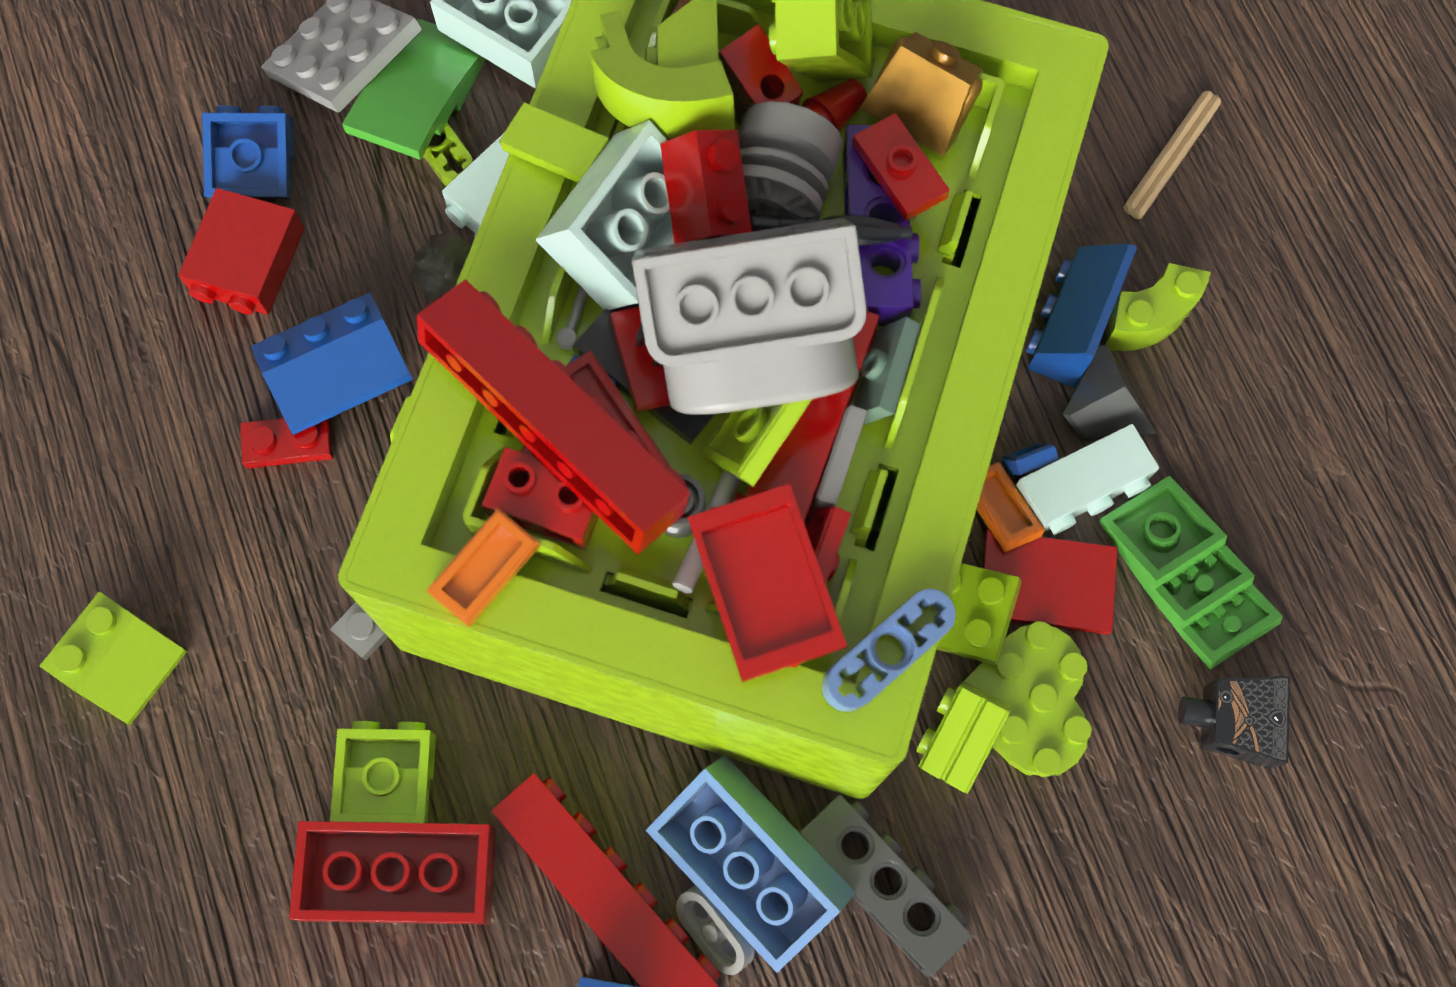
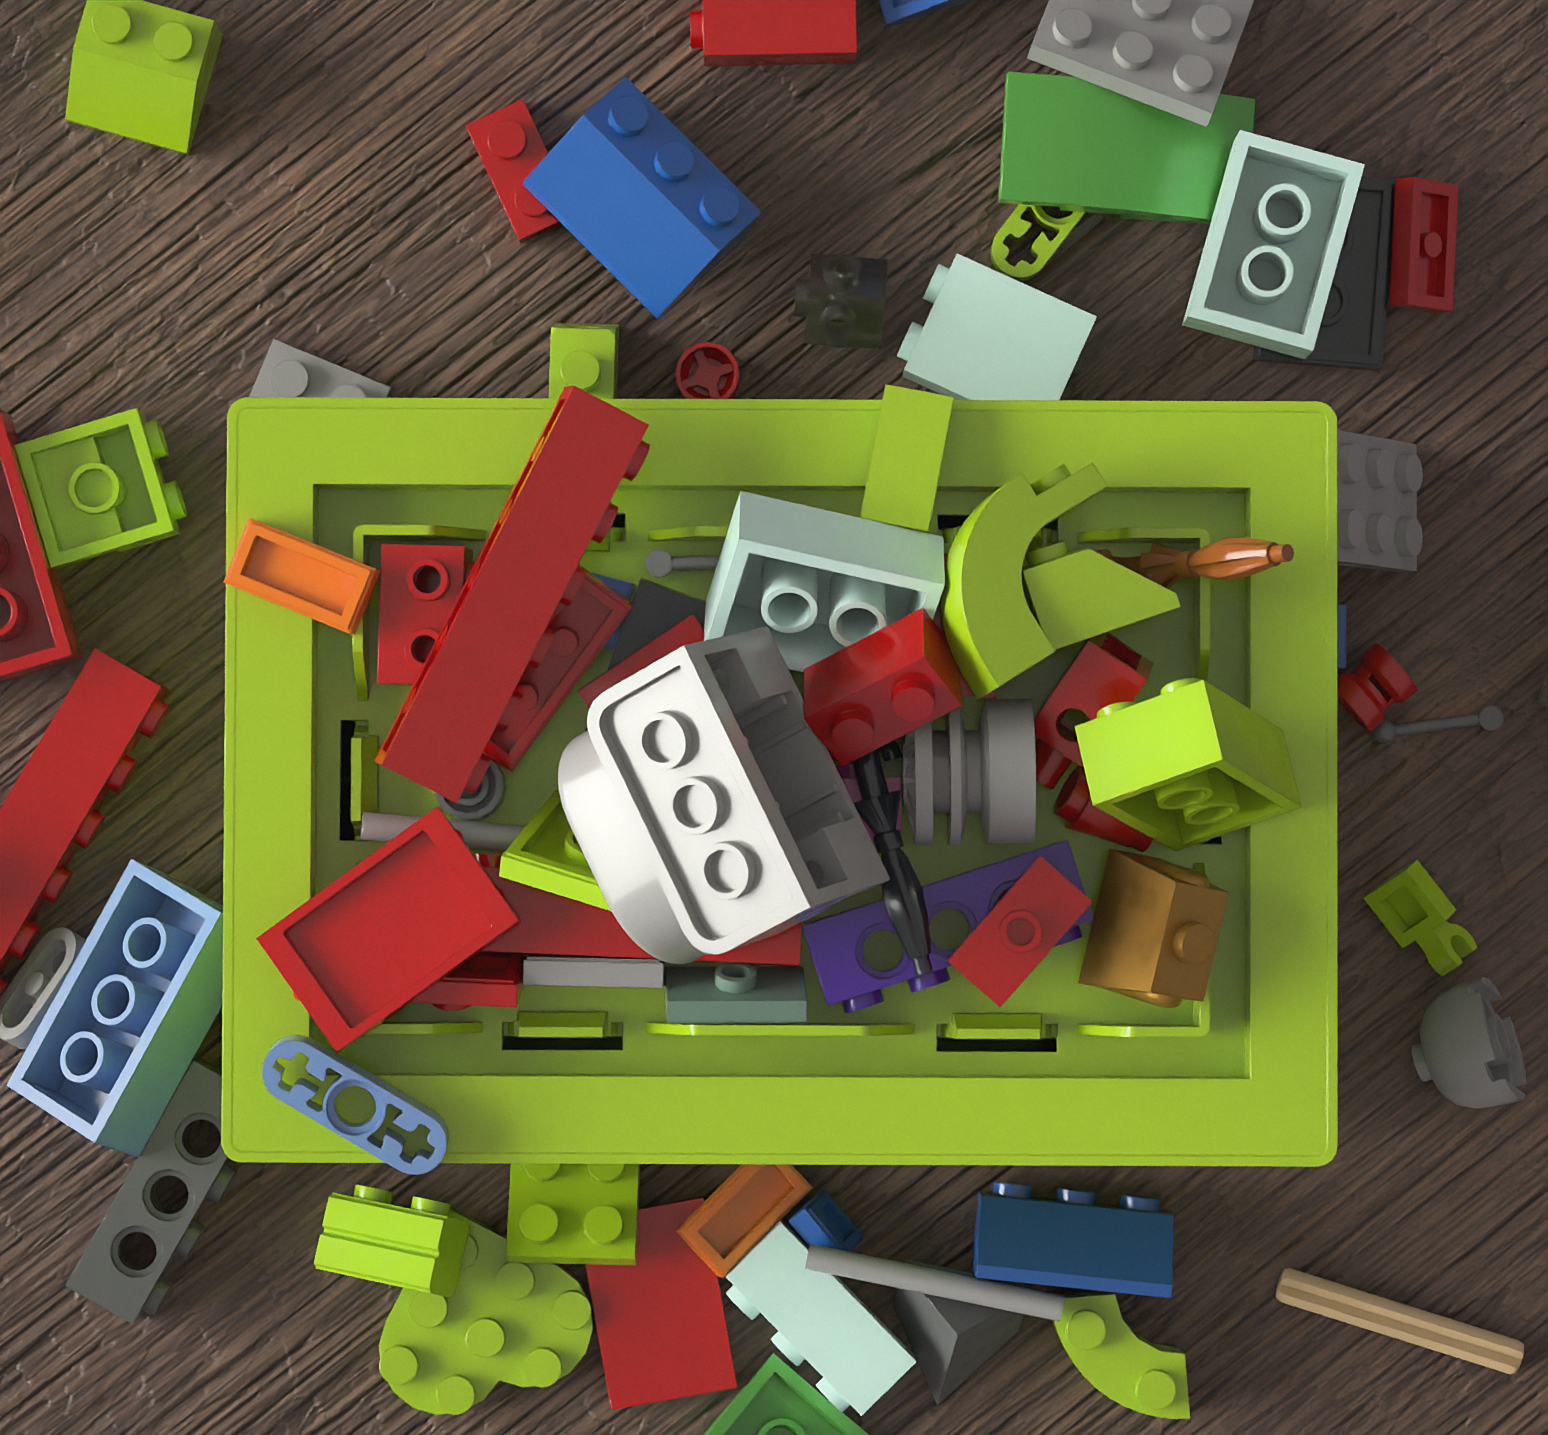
camera: 75 degrees right, 15 degrees up
(1086, 392) = (935, 1282): none -> light grey bar

